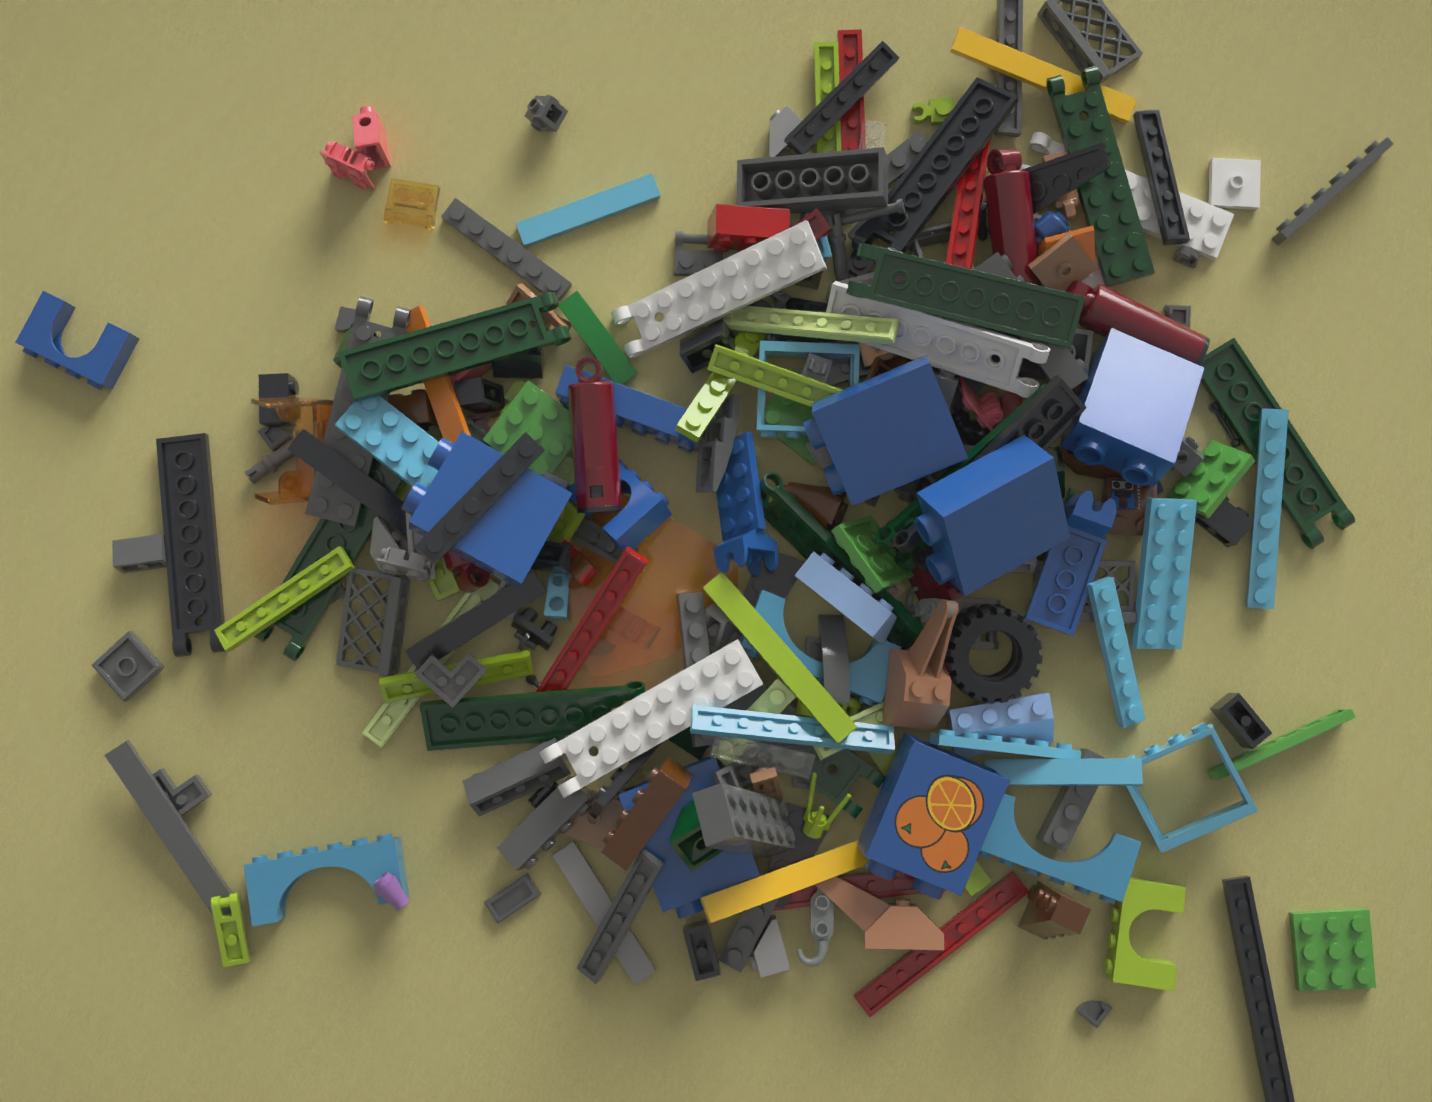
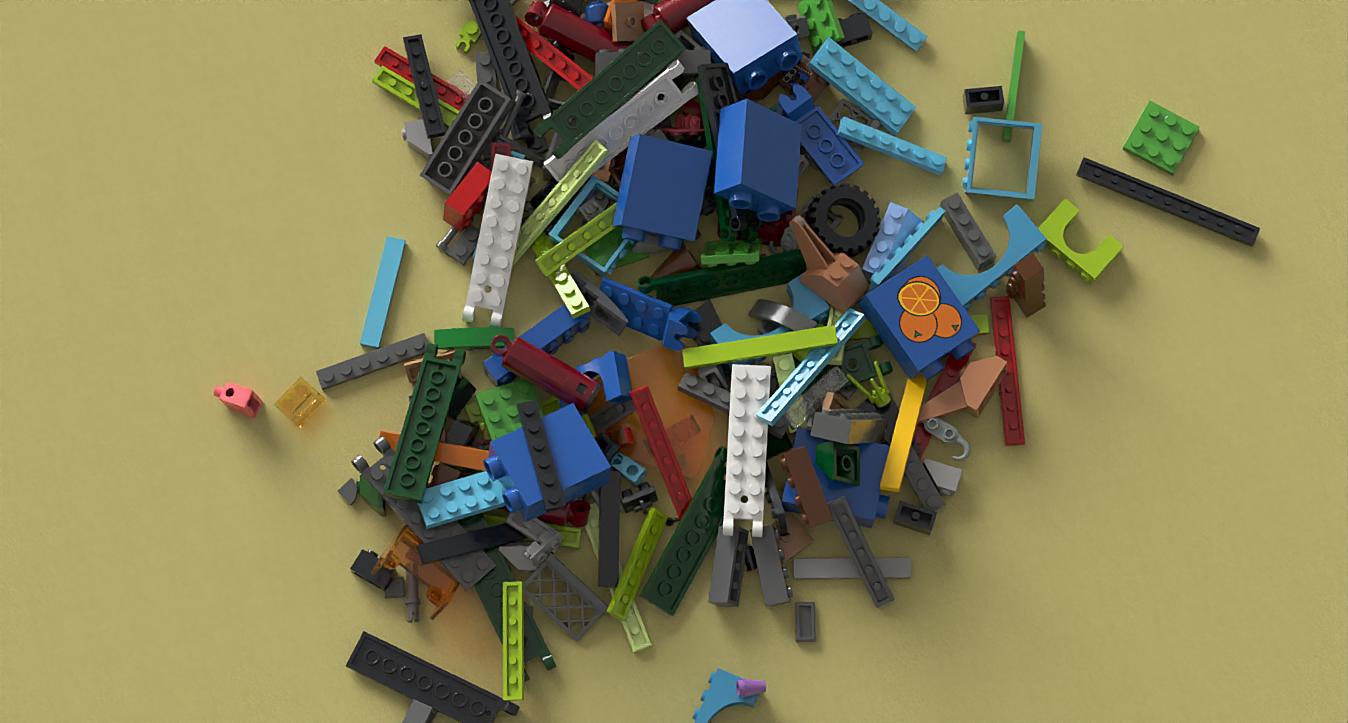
camera: 60 degrees left, 10 degrees down
(43, 337) = (226, 702): blue arch -> none
(348, 164) = (244, 431): coral hinge -> none
(451, 684) = (641, 564): dark grey plate -> none
(545, 113) = (301, 277): dark grey brick -> none
(699, 346) = (526, 272): black brick -> none
(847, 597) = (749, 283): light blue slope -> none
(1070, 771) = (949, 217): medium azure tile -> none
(1094, 1011) = (1109, 304): dark grey tile -> none

